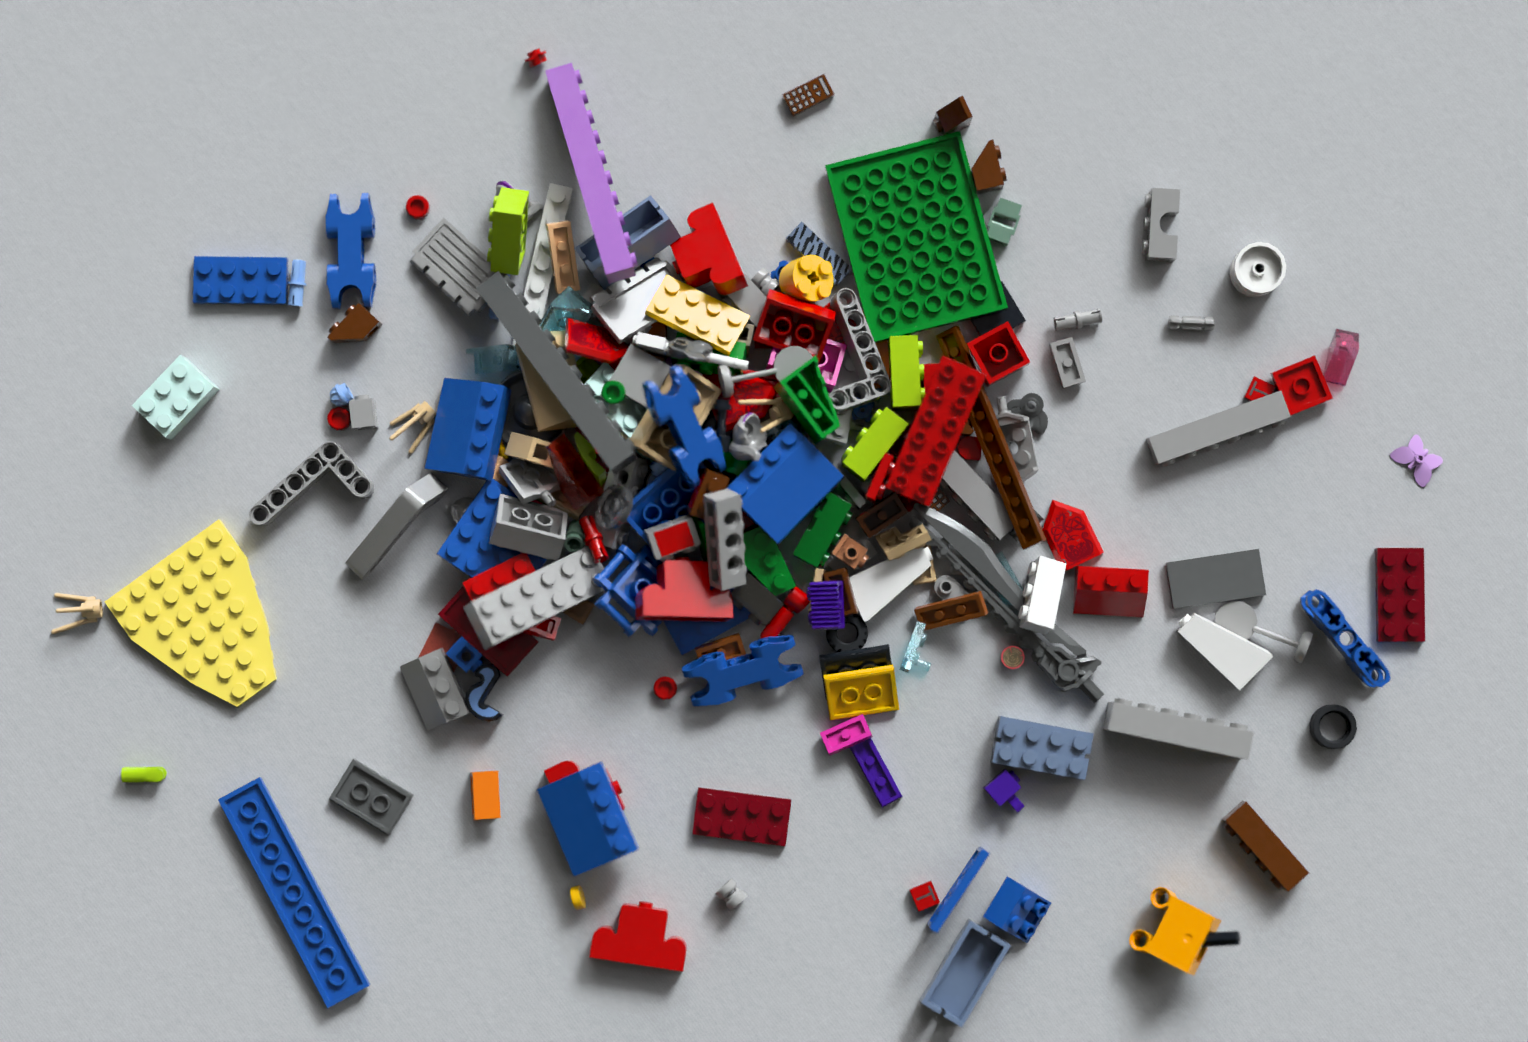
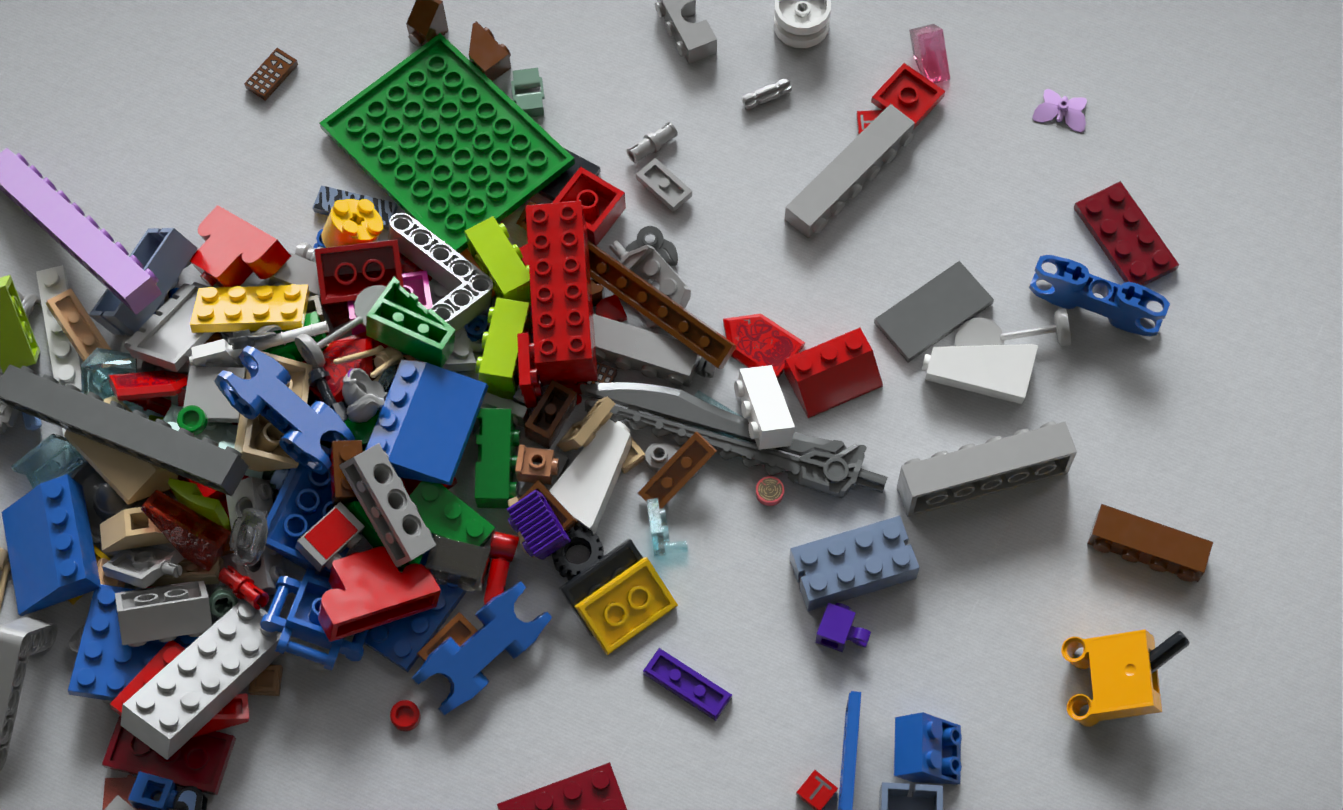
camera: 30 degrees left, 20 degrees down
(846, 734) = (634, 659): dark pink plate -> none
(1315, 729) = (1153, 374): black tyre -> none

